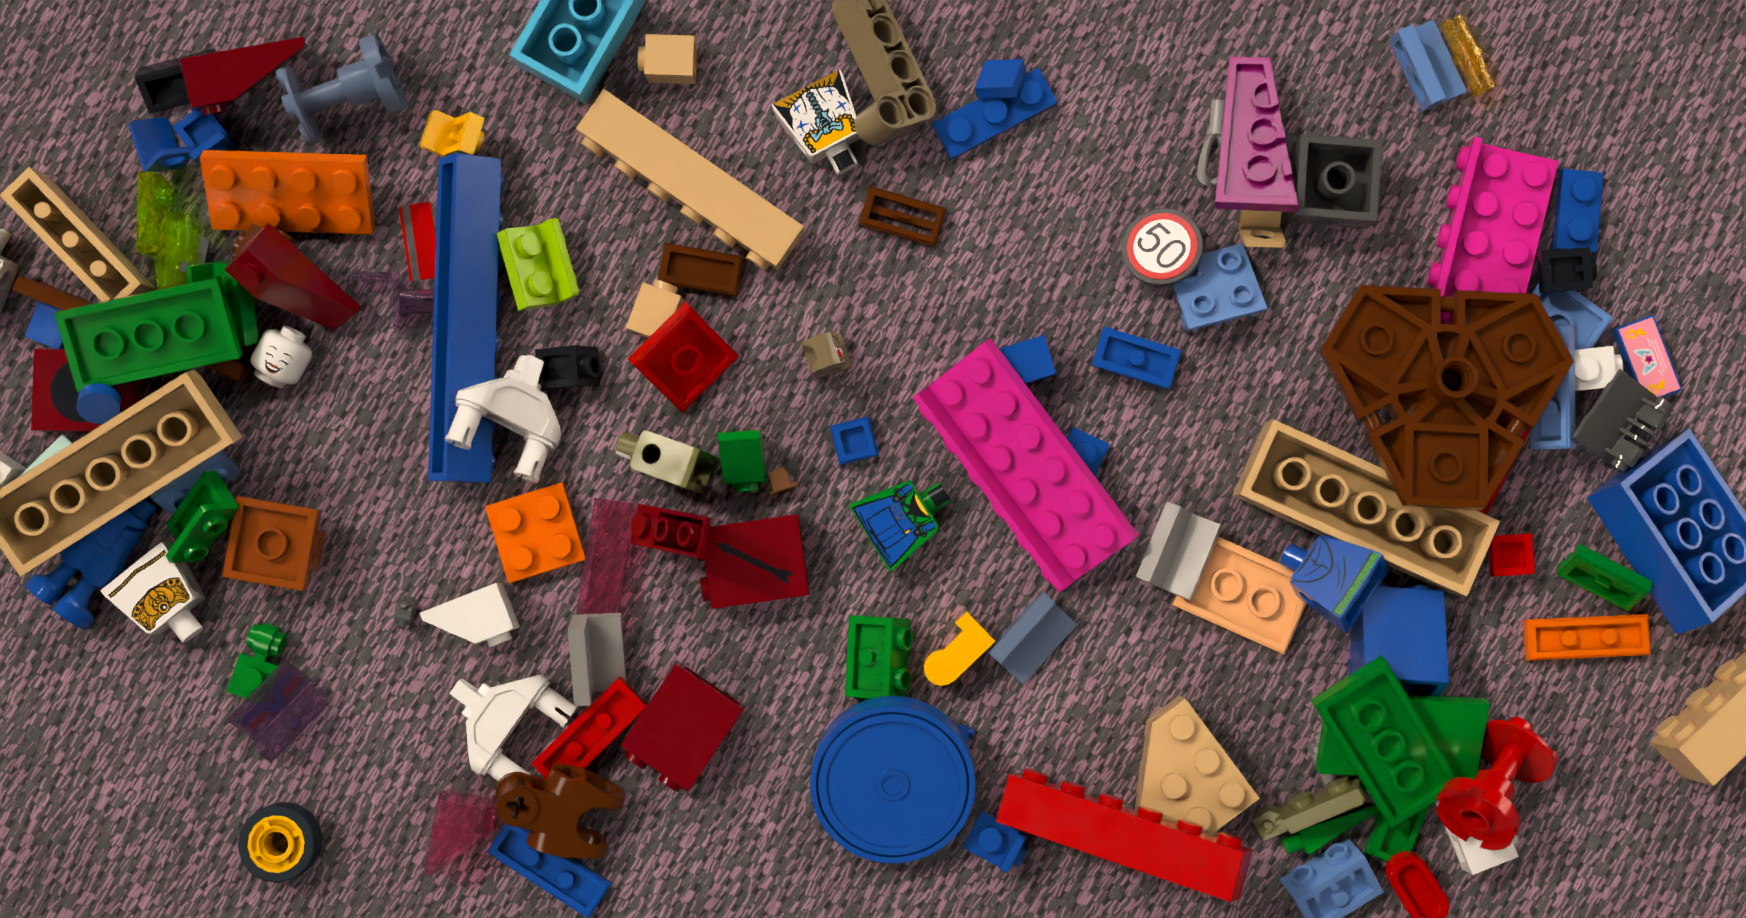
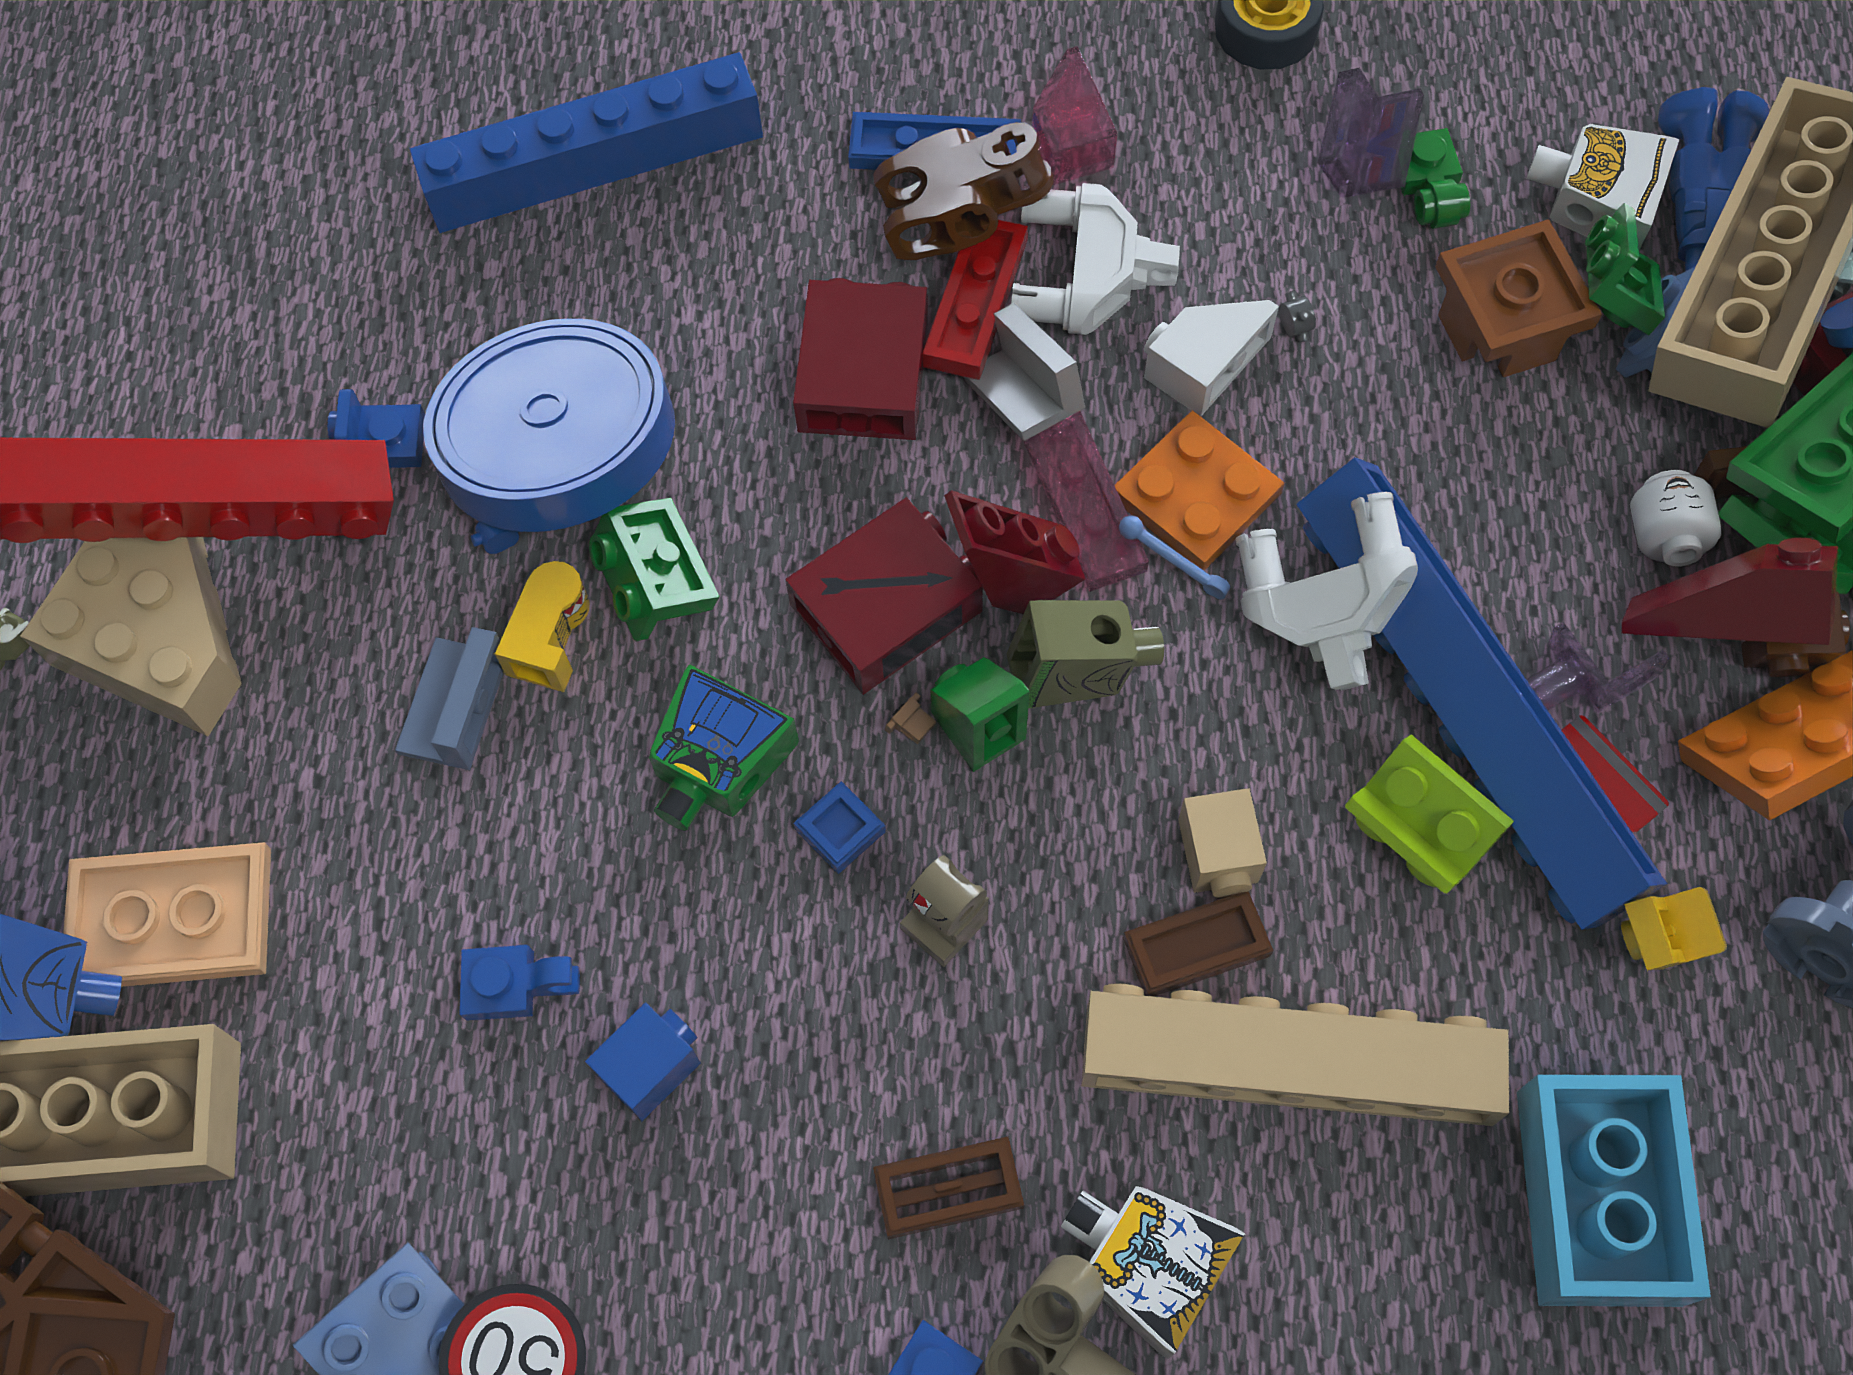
camera: 150 degrees right, 20 degrees down
(569, 367) = (1291, 708): black bracket -> none
(592, 520) = (1132, 528): none -> medium blue hinge
(668, 59) = (1443, 1226): tan brick -> none
(683, 357) = (1145, 798): red tile -> none
(1025, 466) = (573, 908): dark pink bracket -> none
(1135, 358) = (477, 1164): blue plate -> none
(1179, 551) = (282, 916): light grey panel -> none

